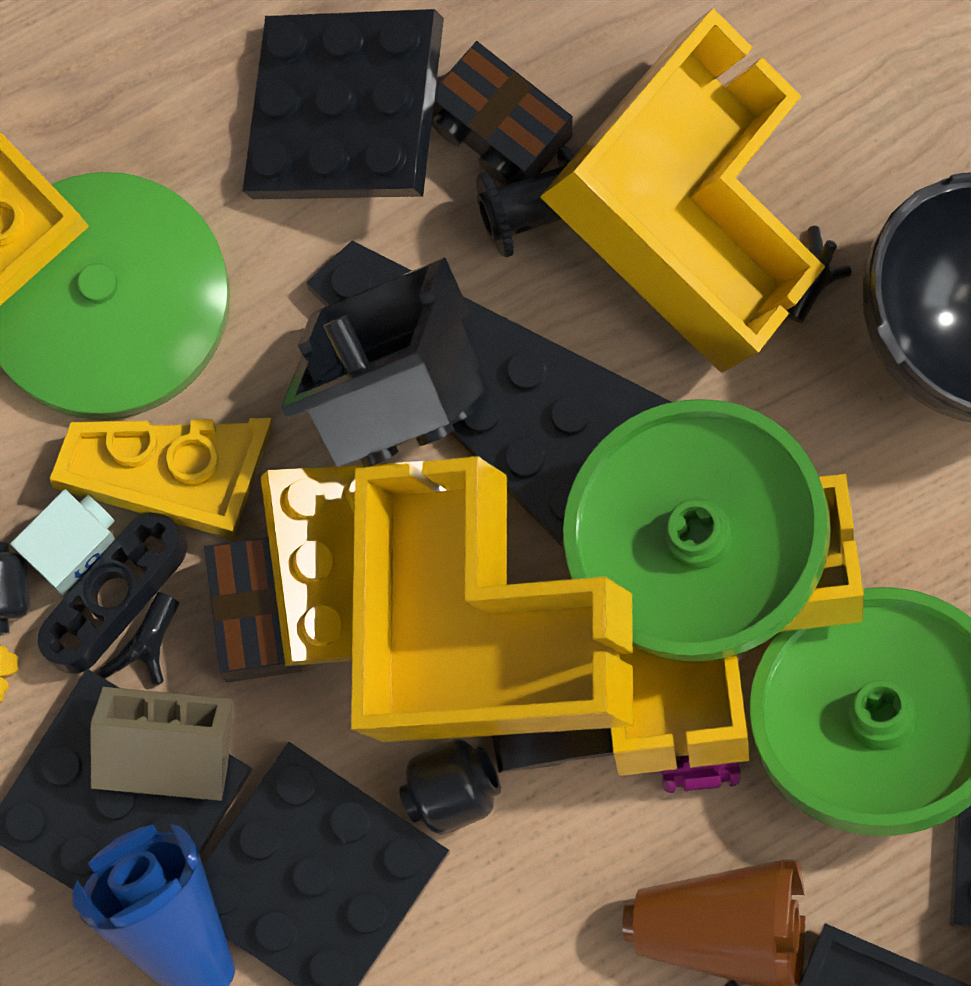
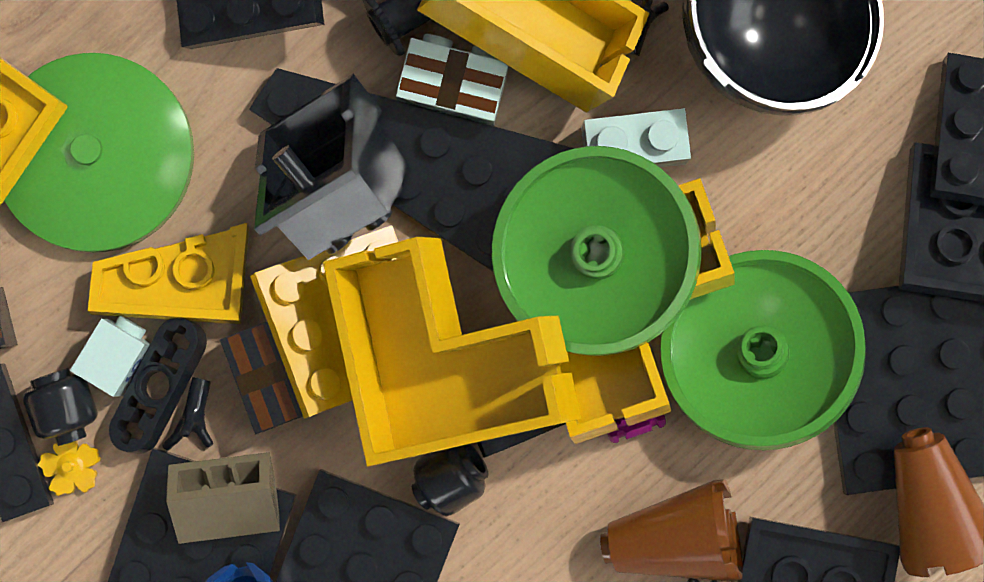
camera: 20 degrees left, 10 degrees up
(565, 298) = (452, 79): none -> brick
(805, 411) = (653, 135): none -> light aqua brick

